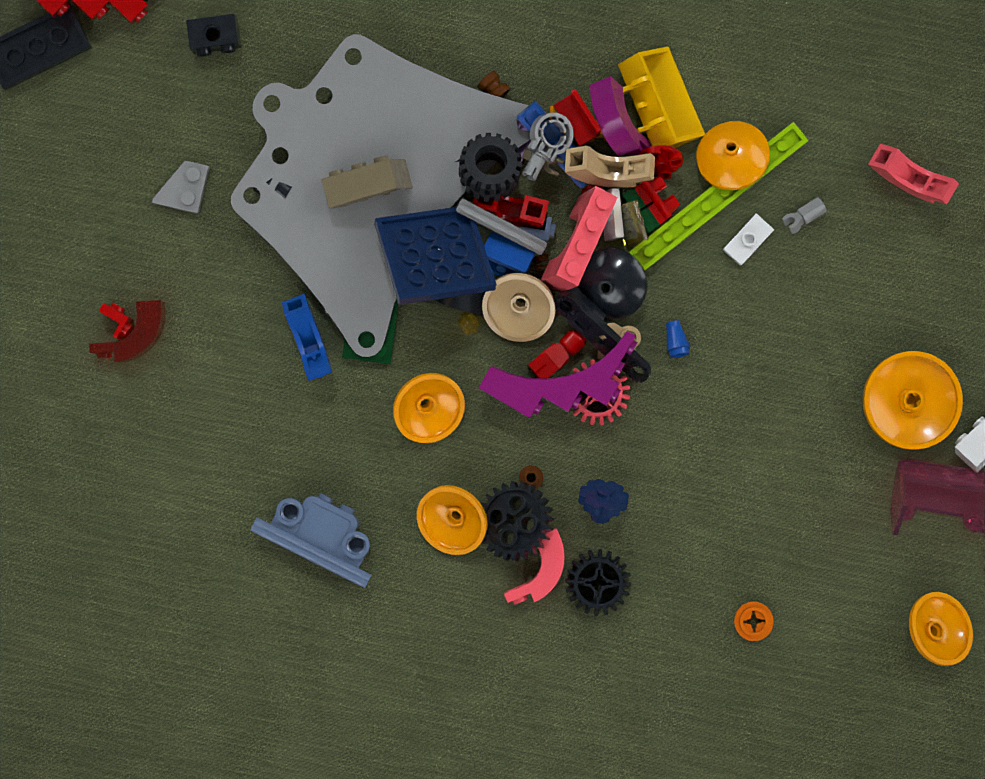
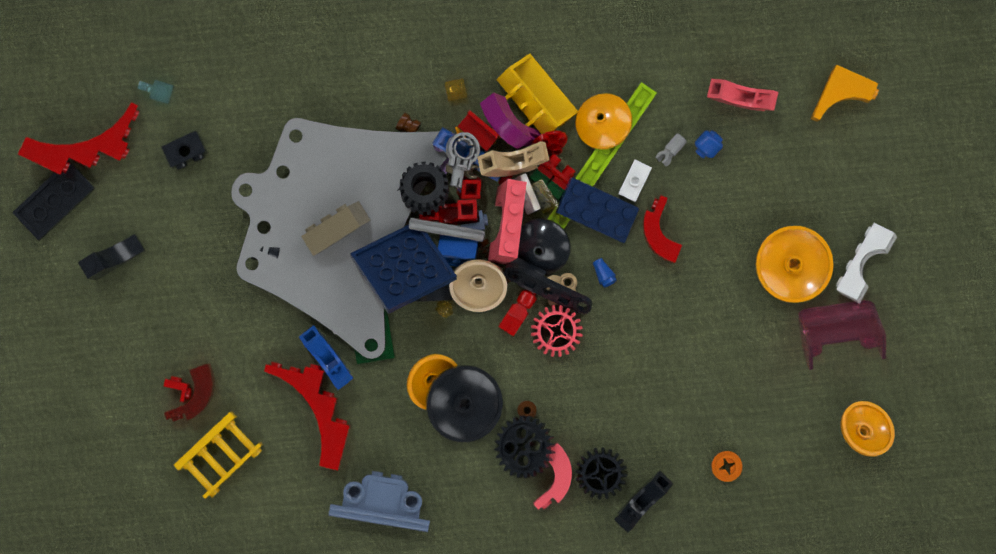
camera: 20 degrees left, 0 degrees up
(73, 139) = (103, 262): none -> black arch
(120, 403) = (201, 450): none -> yellow fence
(184, 188) = (198, 272): light grey wing -> none
(276, 364) = (309, 383): none -> red arch
(444, 527) = (474, 468): light orange dish -> none
(457, 444) = (464, 403): none -> black dish
(526, 393) = (503, 348): magenta arch -> none
(545, 186) = (470, 188): none -> red brick
(564, 63) = (455, 90): none -> clear yellow tile
(603, 499) = (586, 410): dark blue plant -> none
(638, 631) = (642, 501): none -> black arch
(692, 260) = (597, 210): none -> dark blue plate
(751, 316) = (653, 235): none -> red arch
(852, 222) = (708, 144): none -> blue head

